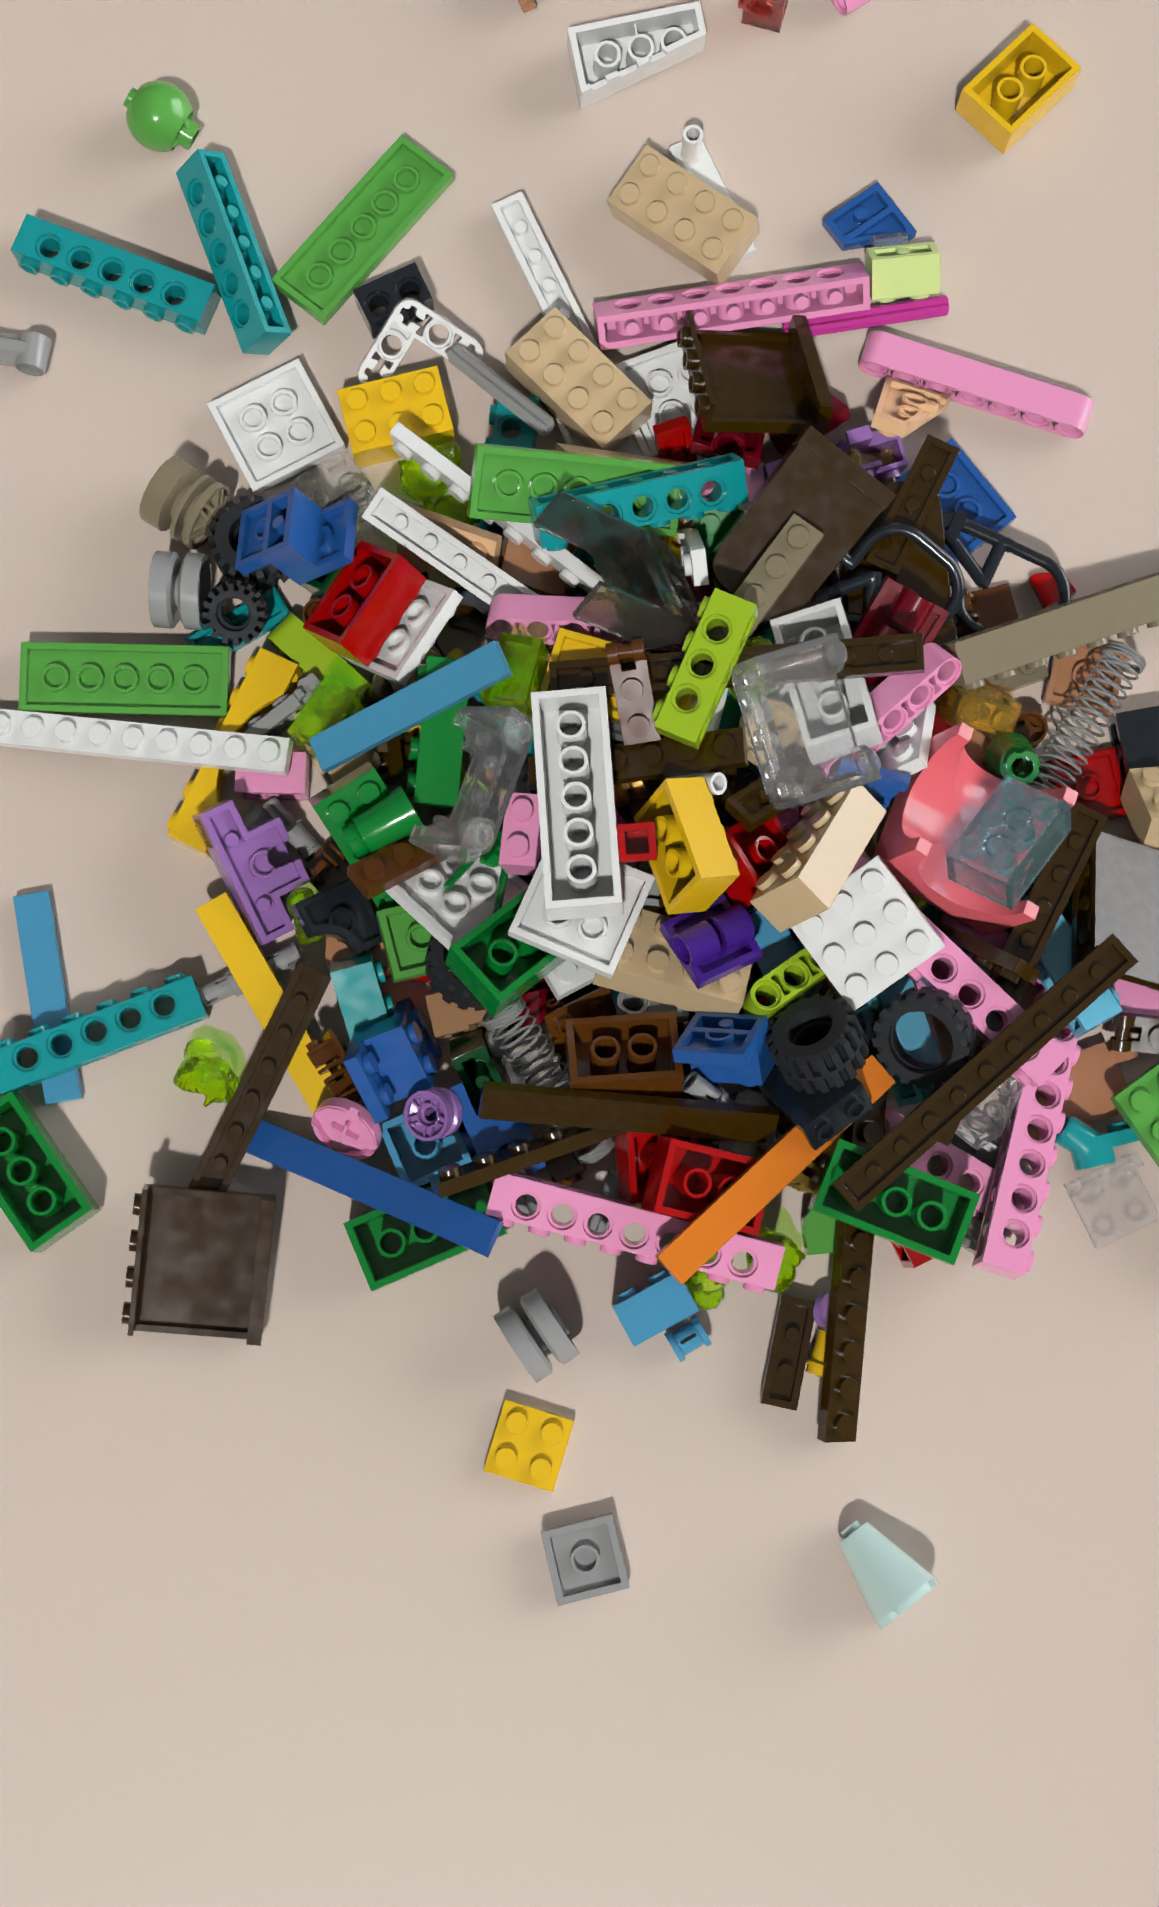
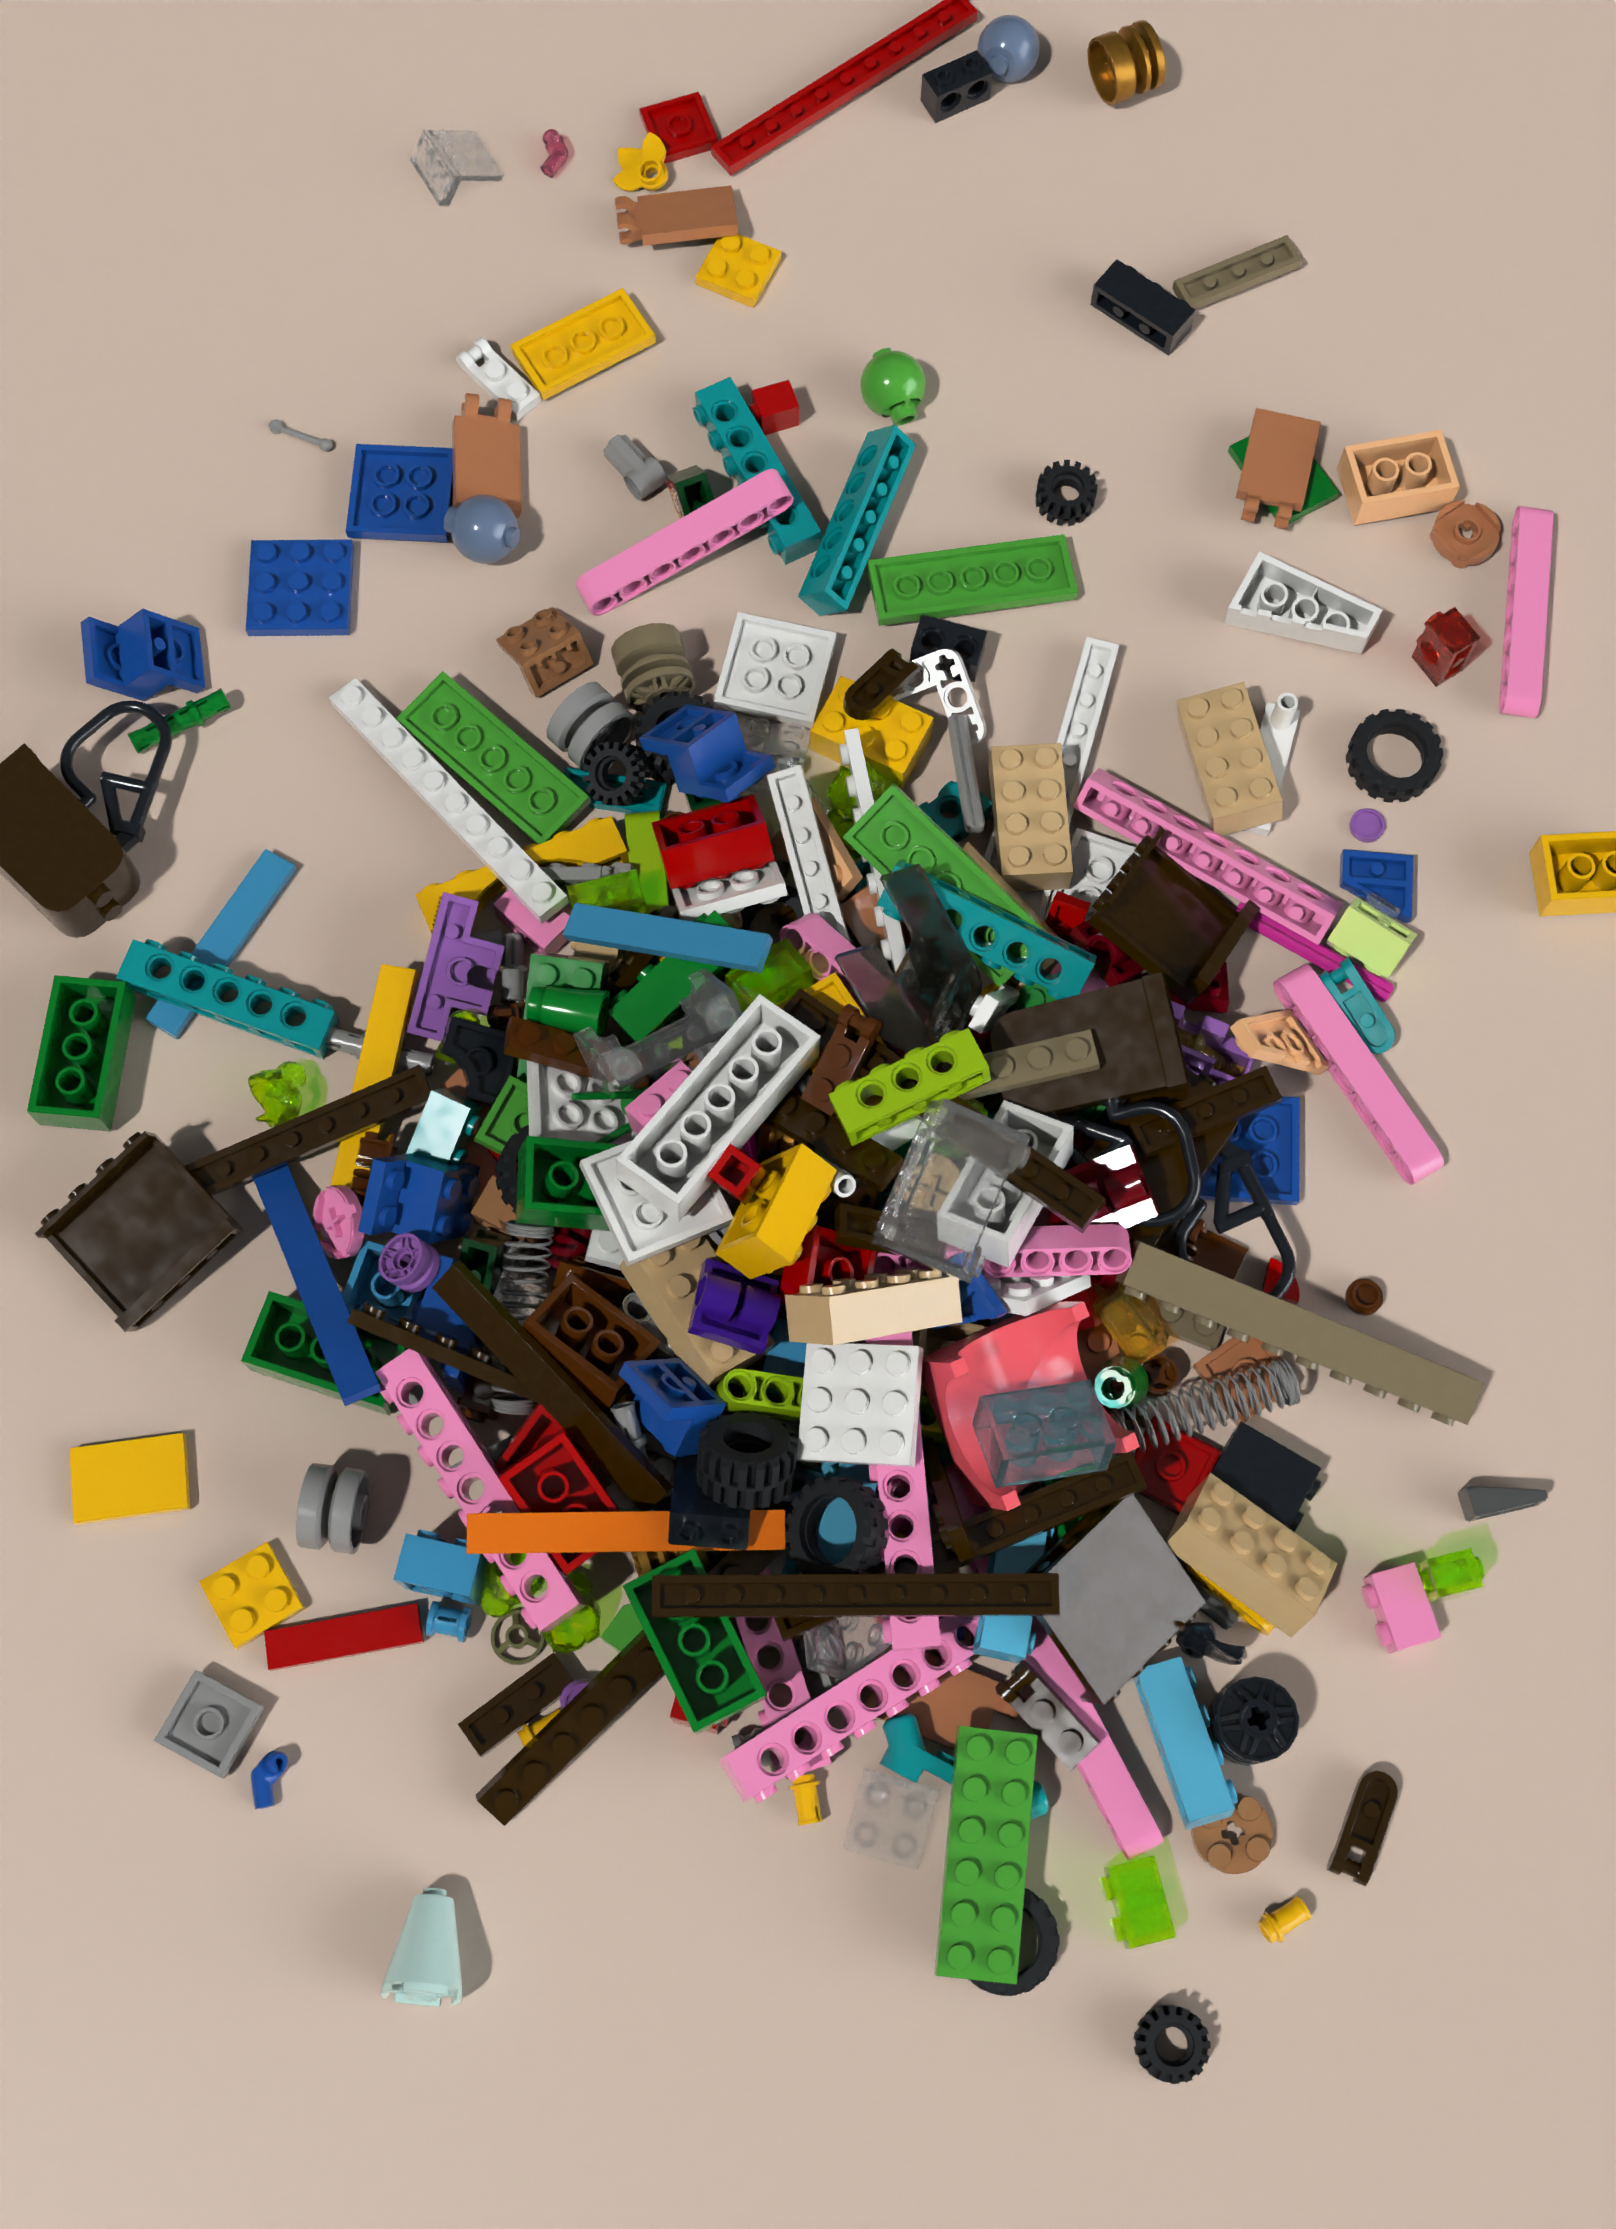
camera: 40 degrees right, 10 degrees down
(83, 209) = (775, 407): none -> red brick
(83, 557) = (546, 650): none -> medium nougat bracket
(93, 342) = (689, 489): none -> dark green slope
(116, 380) = (684, 542): none -> bright pink beam
(361, 1444) = (129, 1478): none -> yellow tile
(367, 81) = (1066, 476): none -> black tyre
(377, 374) = (879, 685): none -> dark brown plate
(621, 1415) = (343, 1637): none -> red tile
(656, 1558) = (265, 1775): none -> blue arm
(742, 1315) = (507, 1644): none -> olive piece
(806, 82) = (1403, 725): none -> black tyre
(821, 185) = (1367, 825): none -> medium lavender piece
(938, 331) = (1360, 1007): none -> teal plate
(1050, 1242) = (806, 1799): none -> yellow pin
(1117, 549) = (1364, 1297): none -> reddish brown plate

